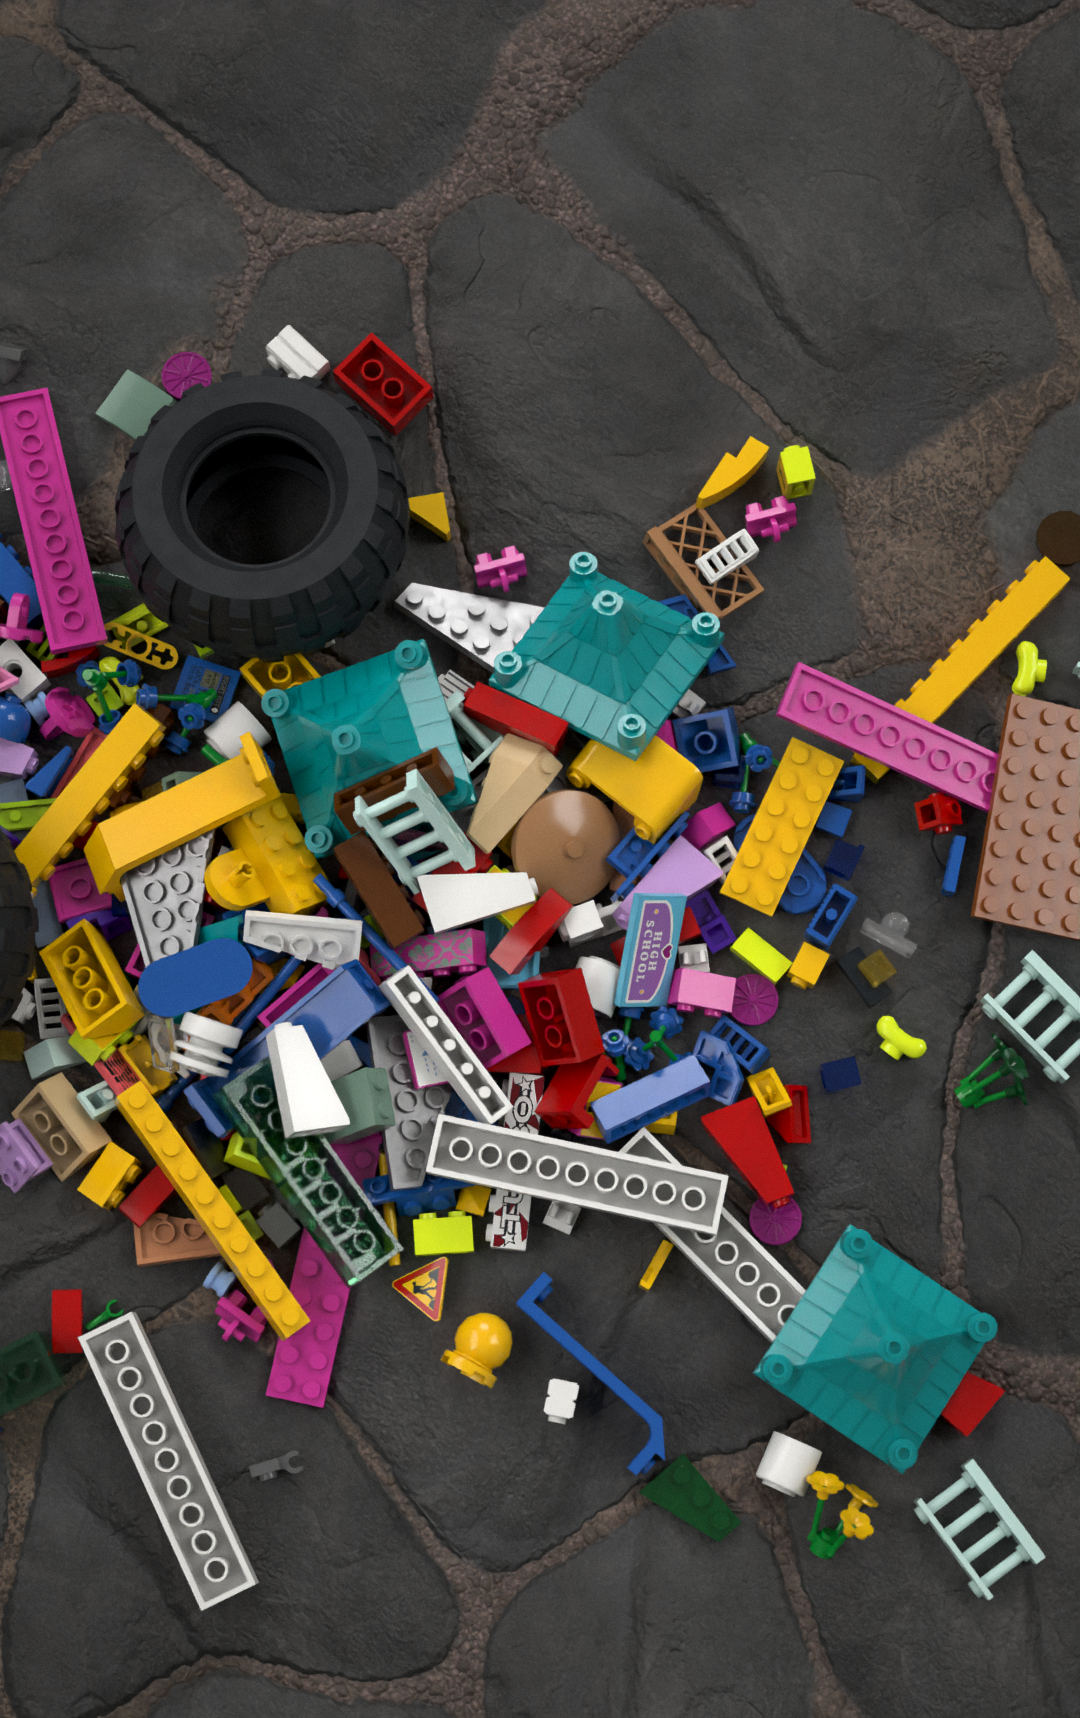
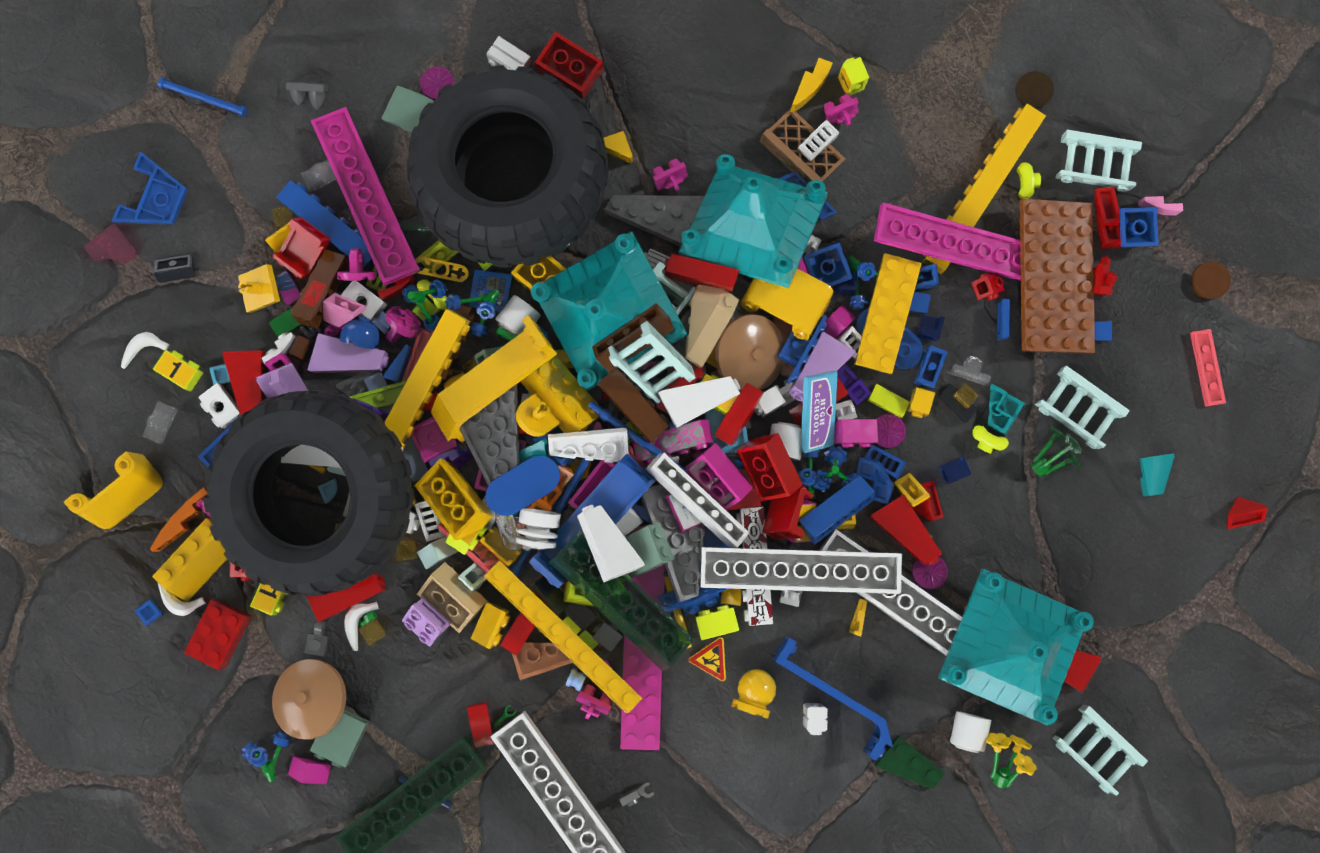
camera: 15 degrees left, 5 degrees up
(929, 1000) = (1003, 410): none -> teal slope

